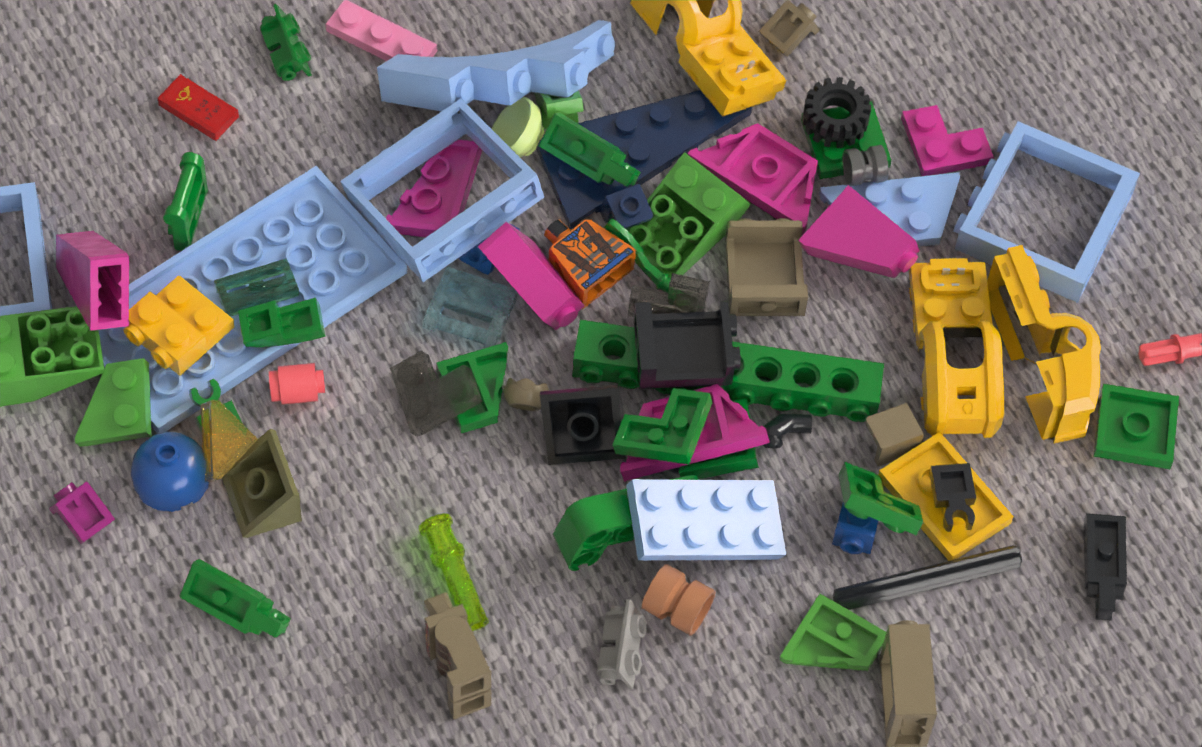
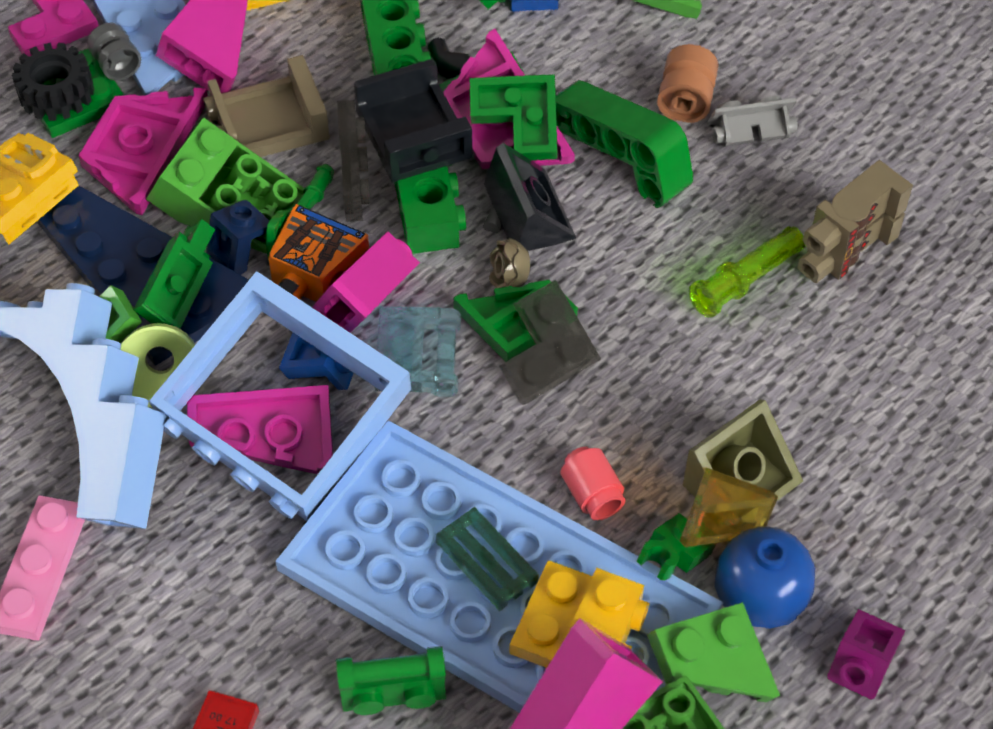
camera: 105 degrees left, 5 degrees down
(232, 601) = (893, 454): green hinge -> none
(278, 326) = (527, 511): green slope -> none
(293, 54) = (63, 680): green hinge -> none
(705, 520) = (601, 71): plate -> none

